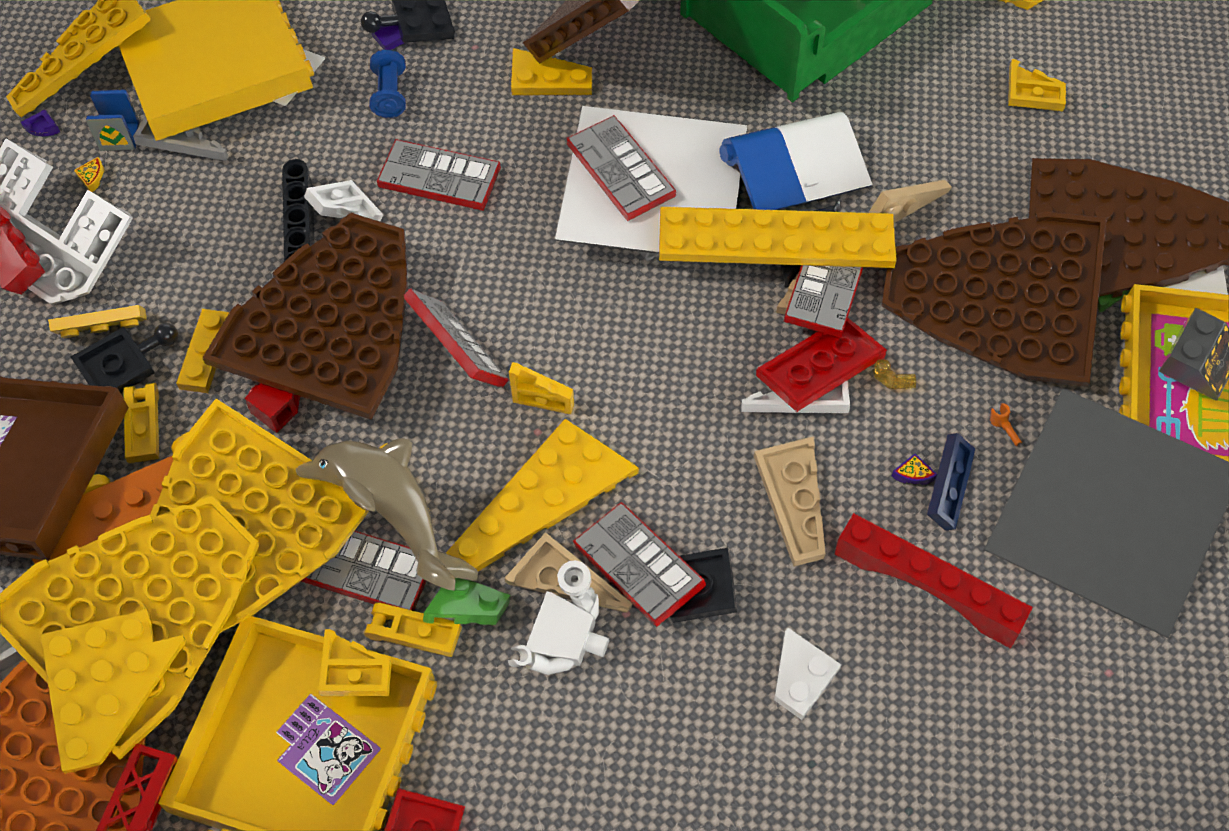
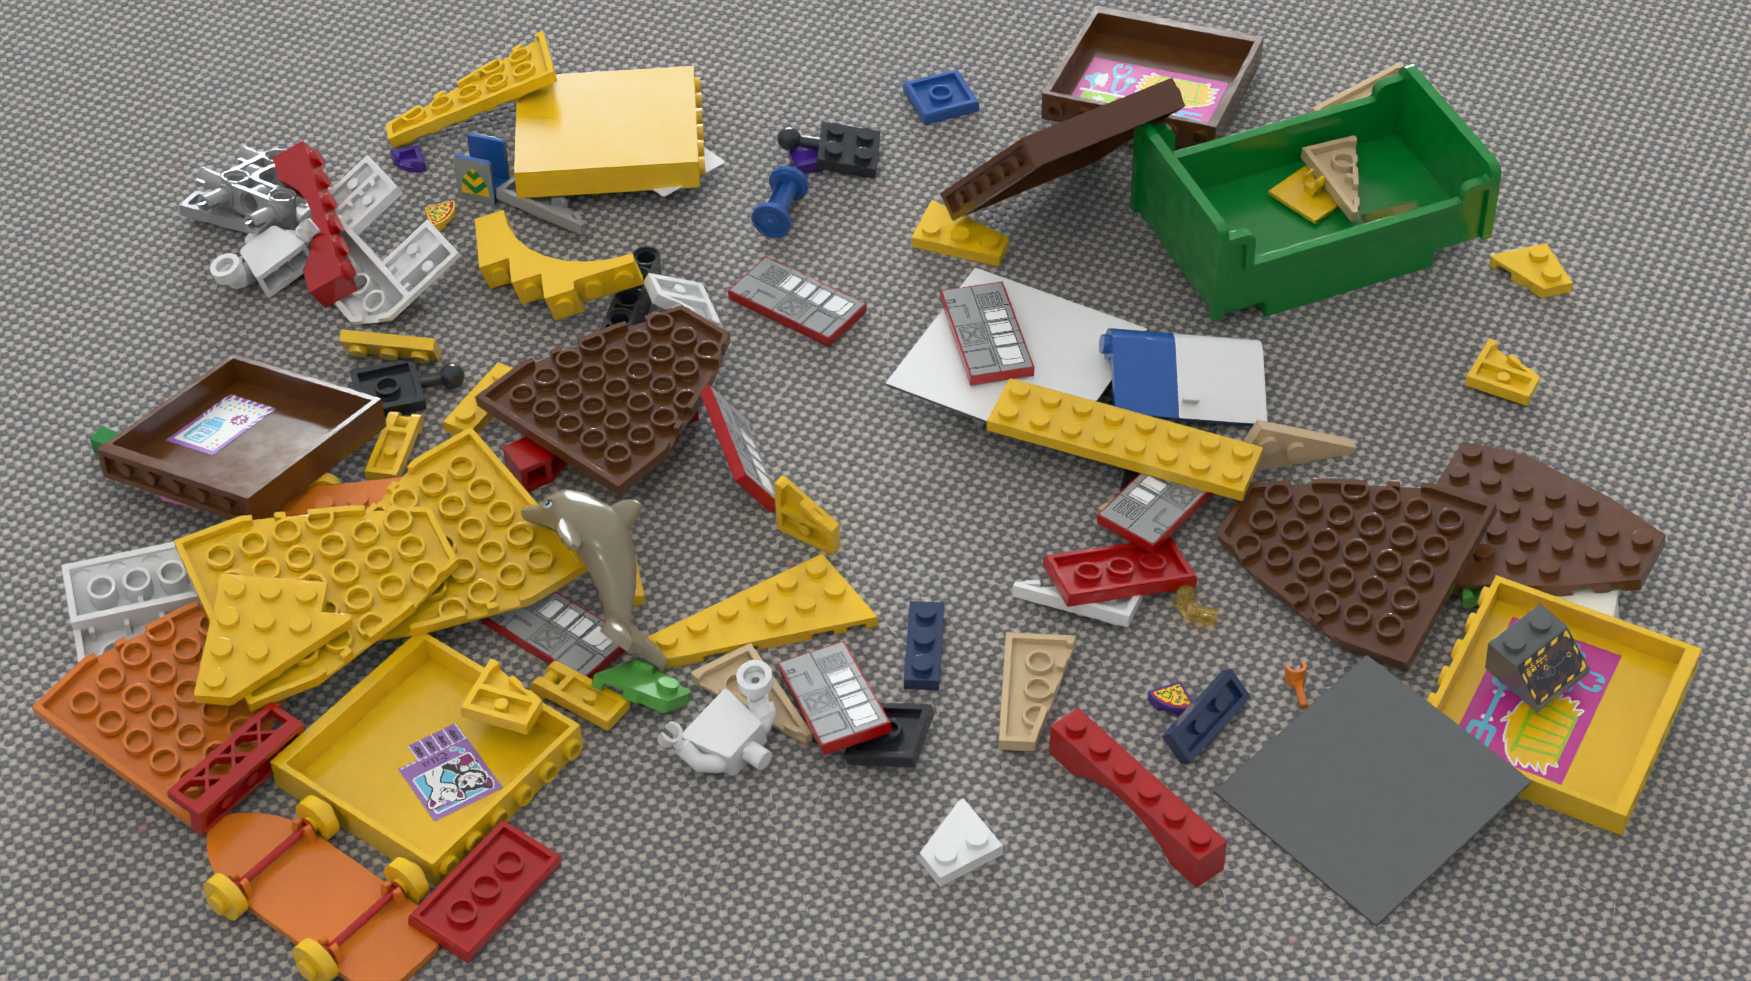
camera: 20 degrees right, 15 degrees down
(205, 216) = (536, 276): none -> yellow arch
(688, 482) = (924, 645): none -> dark blue plate

